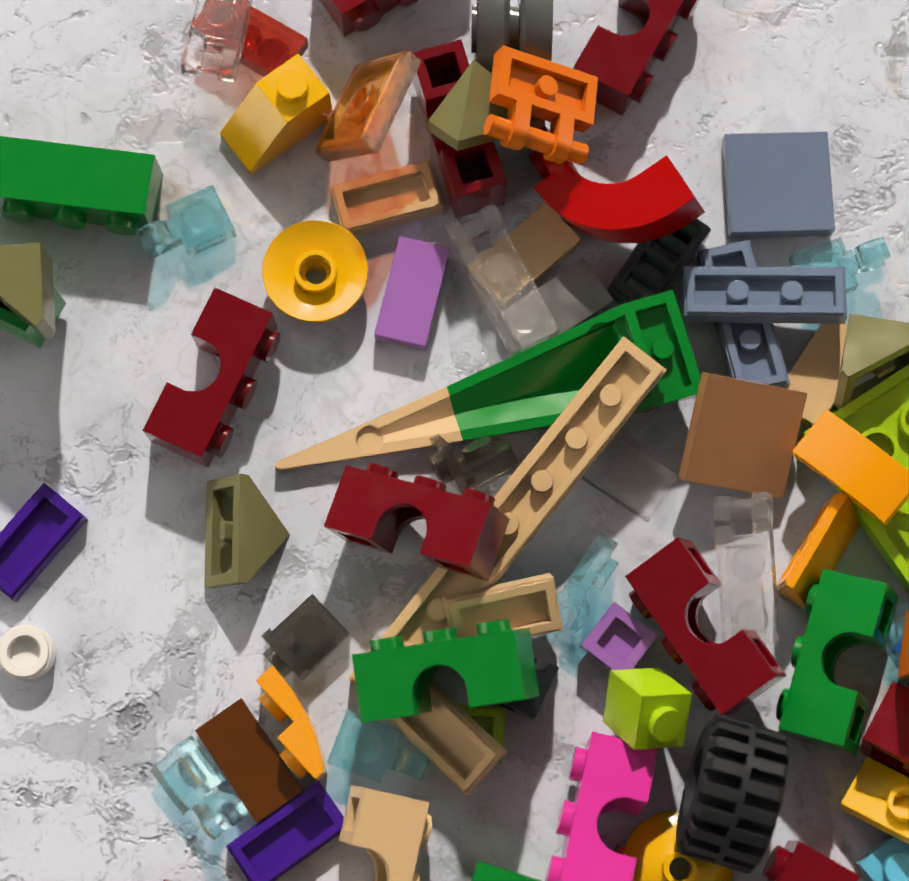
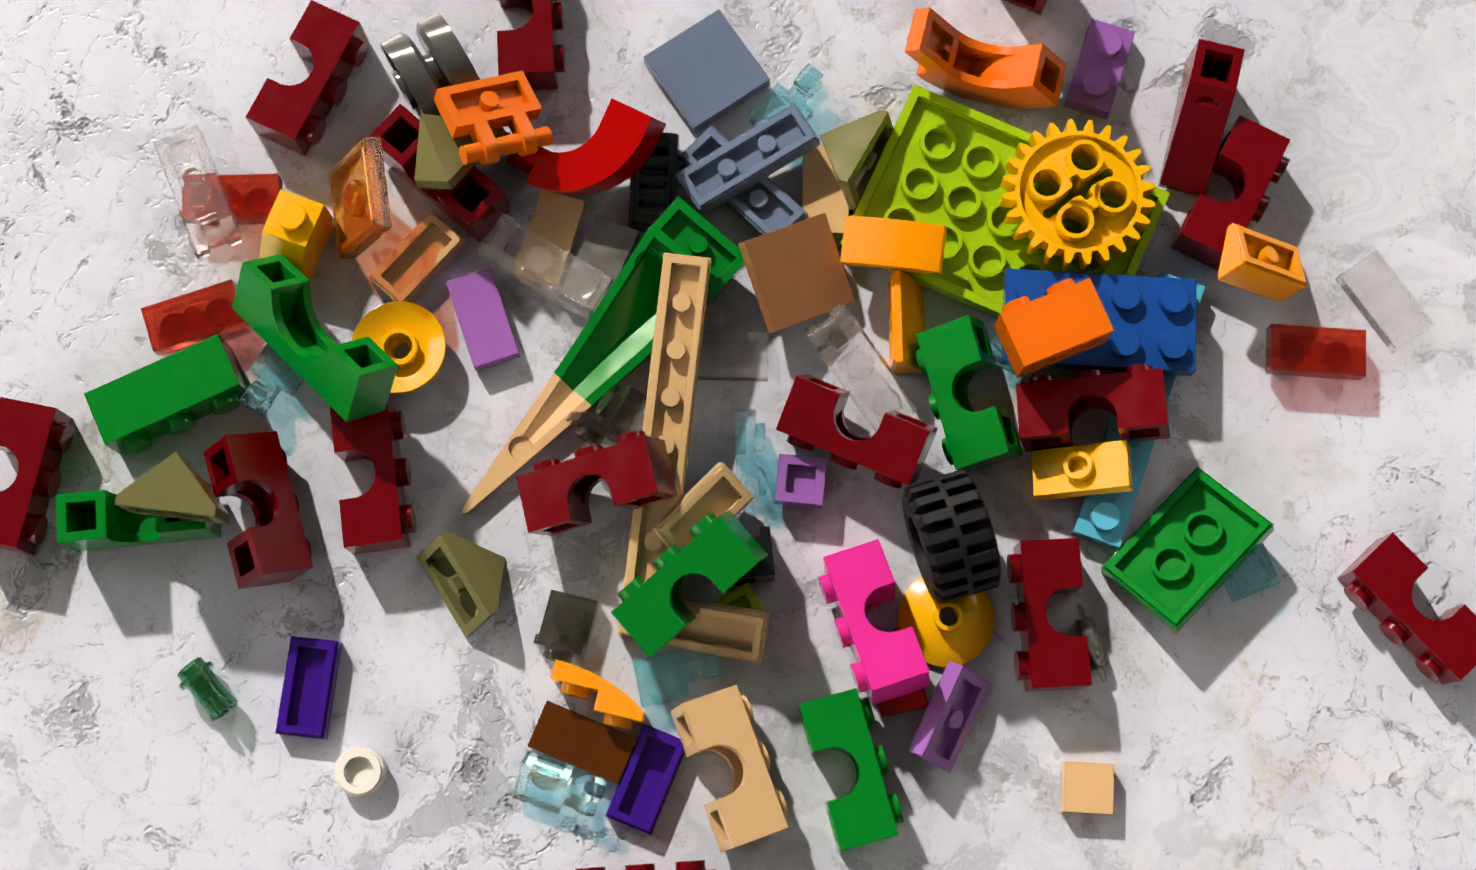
camera: 30 degrees left, 0 degrees up
(108, 306) = (256, 472): none -> dark red arch
(146, 126) = (192, 318): none -> clear red plate
(226, 162) = (279, 308): none -> green arch
(647, 708) = (851, 515): lime brick -> none

